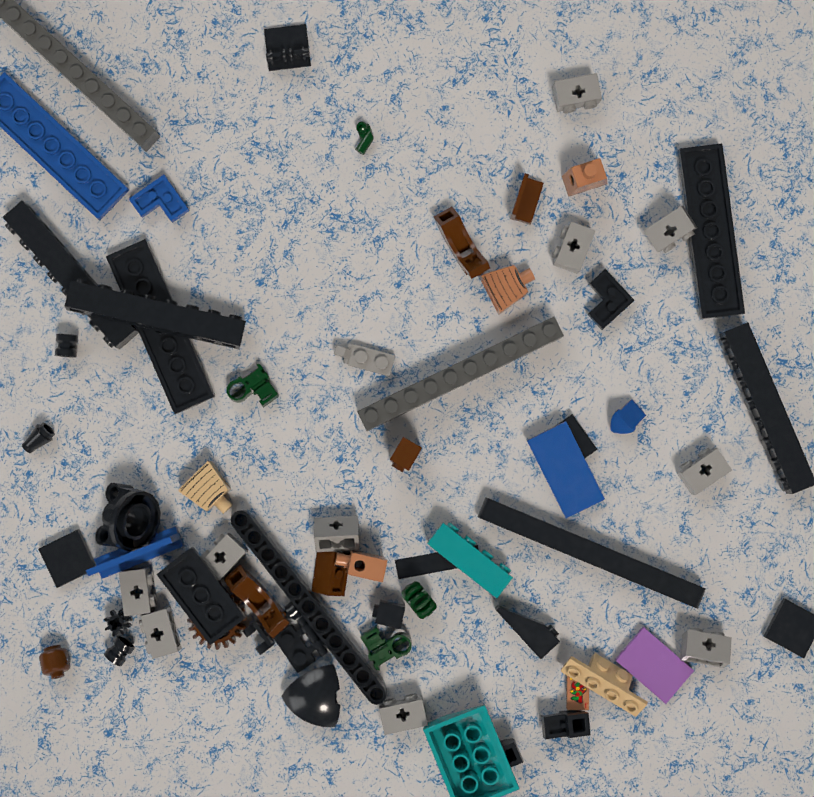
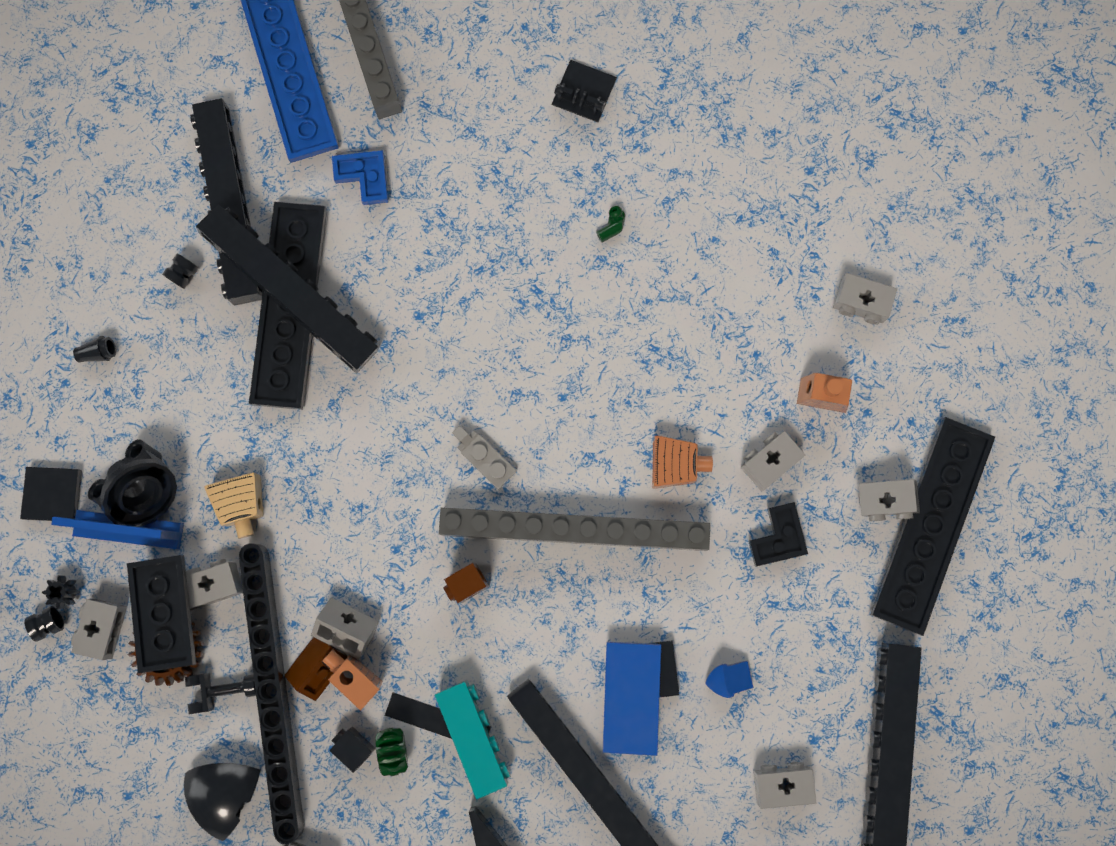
camera: 30 degrees right, 5 degrees down
(134, 602) = (90, 580): light grey brick -> none
(256, 382) = (354, 418): dark green piece -> none
(258, 599) = (221, 651): reddish brown arch -> none
(294, 647) = (230, 727): black plate -> none
(381, 649) = (321, 781): dark green piece -> none
(460, 243) = (652, 389): reddish brown arch -> none
(526, 200) = (749, 382): reddish brown panel -> none

